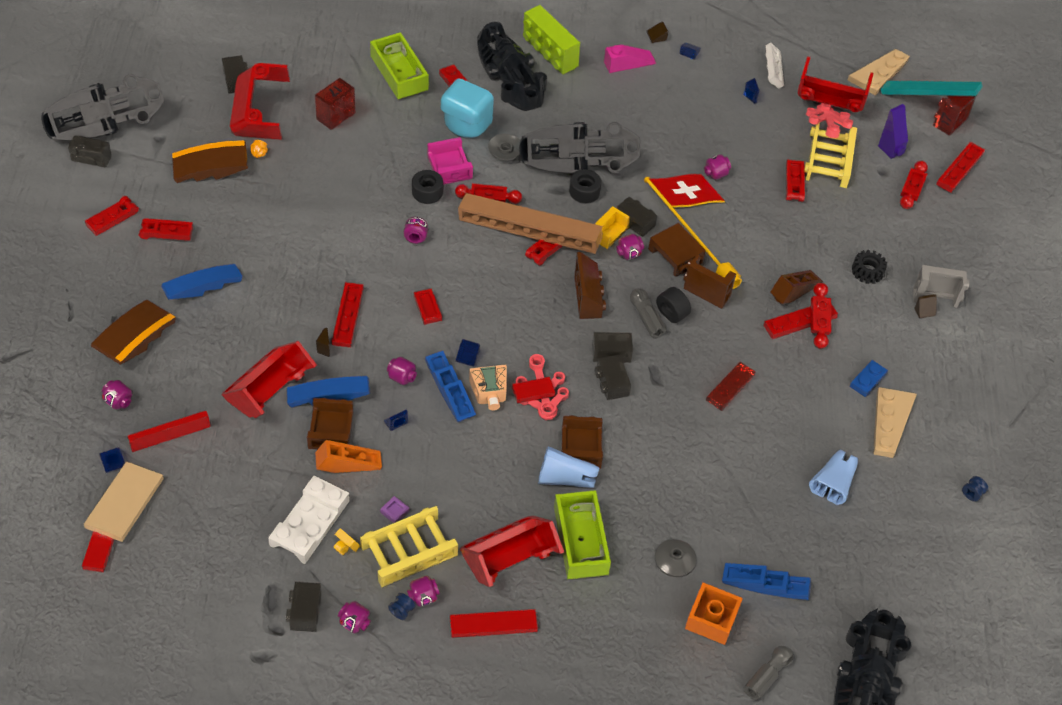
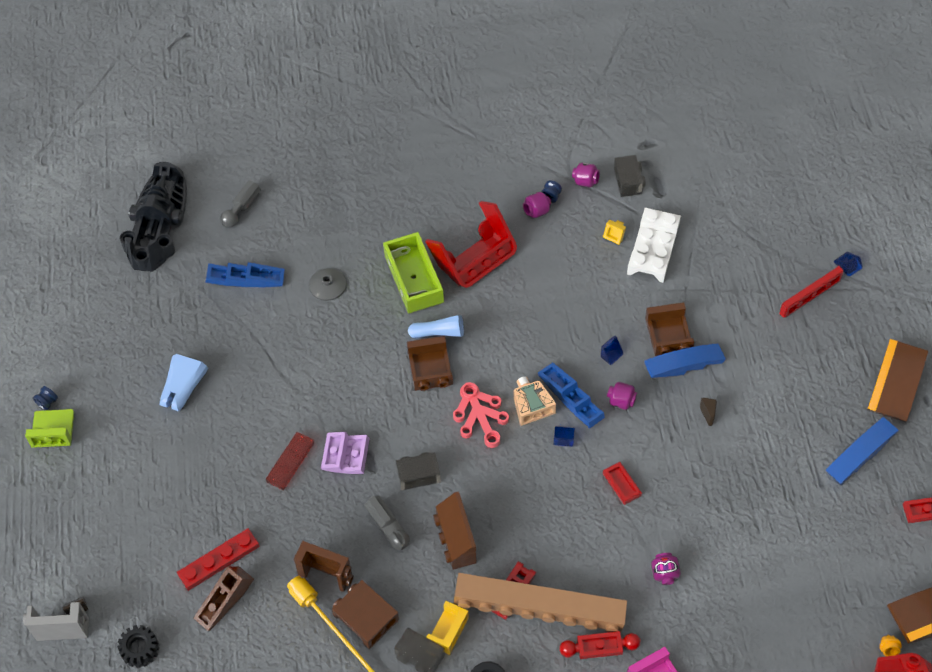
camera: 175 degrees right, 5 degrees up
(97, 552) = (815, 188): red tile -> none
(116, 394) = (876, 313): magenta head -> none
(123, 501) = (817, 227): tan tile -> none
(267, 377) = (756, 353): red windscreen -> none
(342, 458) = (634, 304): orange slope -> none
(347, 315) = (700, 455): red tile -> none
(394, 510) = (584, 271): medium lavender tile -> none
(409, 565) = (556, 223): light yellow fence -> none
(427, 194) = (677, 623): black tyre -> none
(493, 623) = (470, 199): red tile -> none
(533, 390) = (487, 404): red tile -> none
(613, 377) = (411, 436): clear smoke brick -> none
(630, 246) = (419, 603): magenta head -> none
(673, 304) = (360, 533): black tyre -> none
(677, 381) = (345, 453): none -> lavender slope
(713, 613) = (289, 232): orange brick -> none
(821, 315) = (196, 557): red plate -> none
(868, 378) = (144, 502): blue plate -> none
(891, 417) = (123, 461): tan wing -> none
(965, 455) = (51, 428): none -> lime bracket

